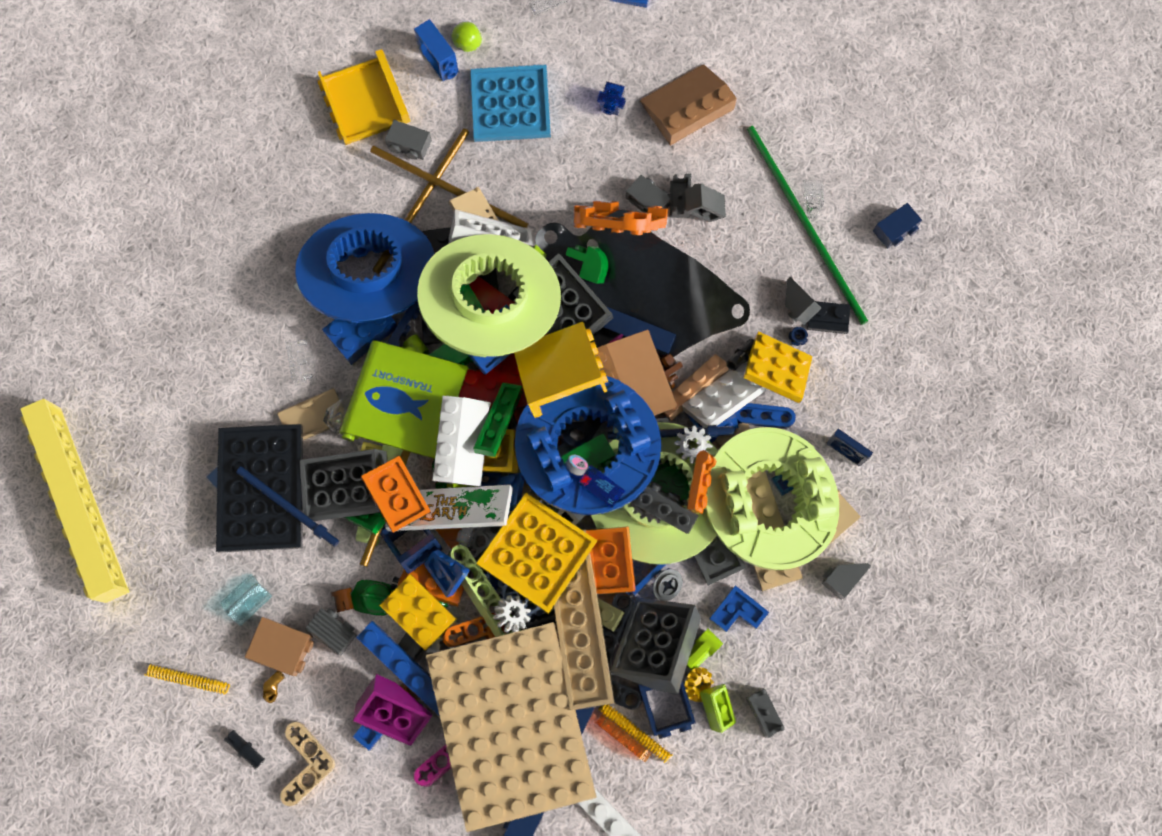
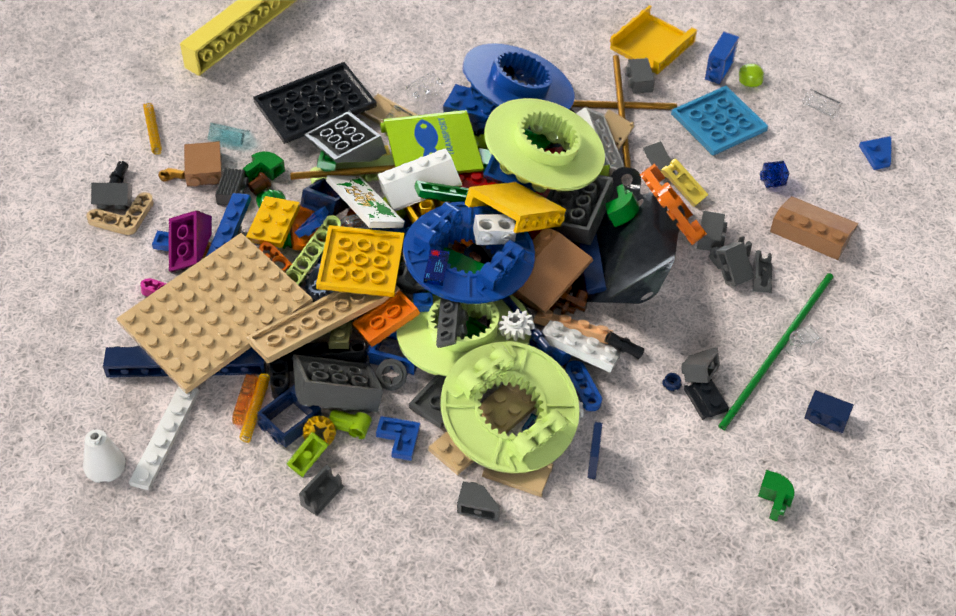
camera: 60 degrees right, 25 degrees down
(273, 767) = (111, 194): none -> dark grey brick
(317, 579) = (264, 162): none -> green brick
(318, 530) = (302, 140): dark blue bar -> none
(395, 494) = (353, 160): orange plate -> none
(518, 619) = (303, 264): white gear -> none
(533, 190) = (657, 154): none -> dark grey hinge
(576, 465) = (443, 242): light grey tile -> none
(578, 404) = (493, 229): none -> white brick
(579, 185) = (684, 182): none -> light yellow plate
(608, 519) = (423, 301): none -> blue plate
(700, 482) = (485, 335): orange plate -> none
(719, 183) = (762, 273): none -> dark grey hinge
(778, 367) = (630, 370): yellow plate -> none
(957, 316) = (779, 490): none -> green brick

